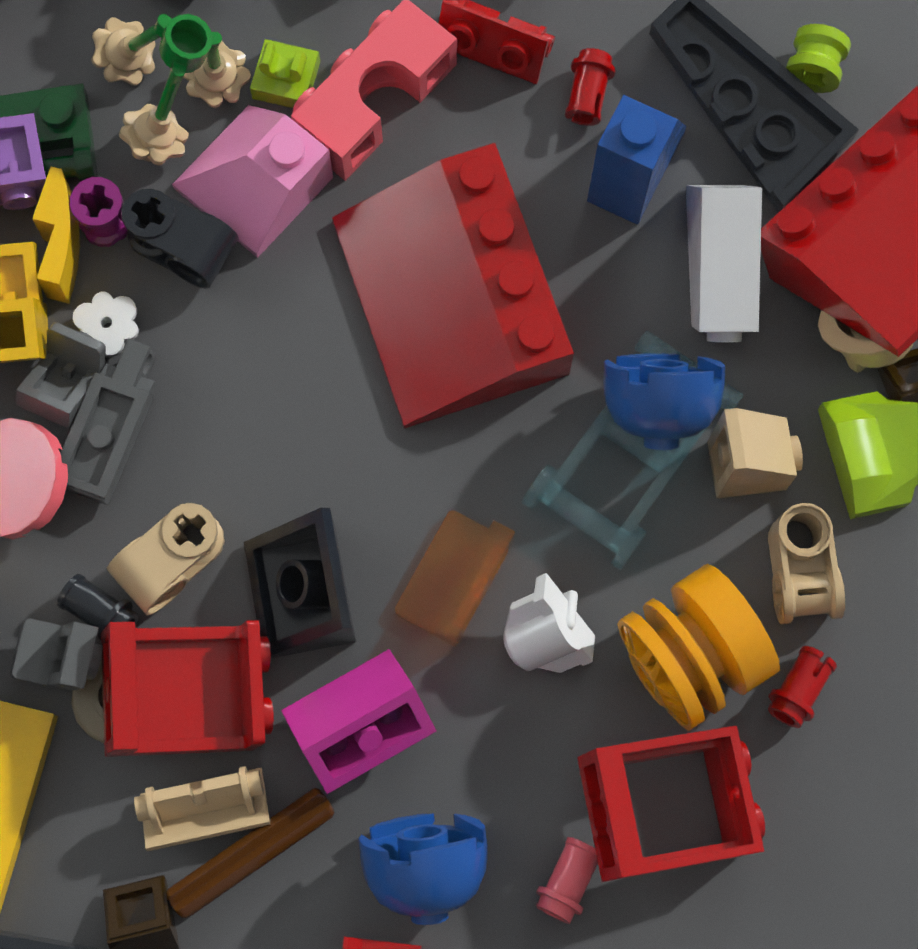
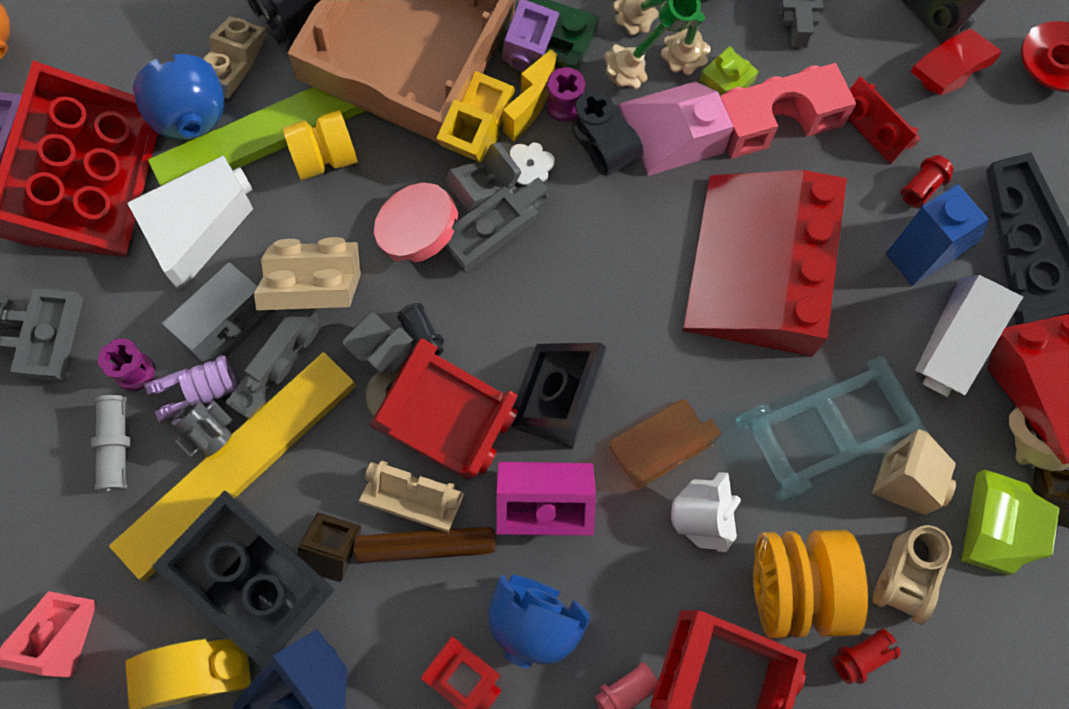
camera: 30 degrees right, 5 degrees down
(163, 561) = (479, 324): tan piece -> none
(663, 396) = (874, 402): blue cylinder -> none

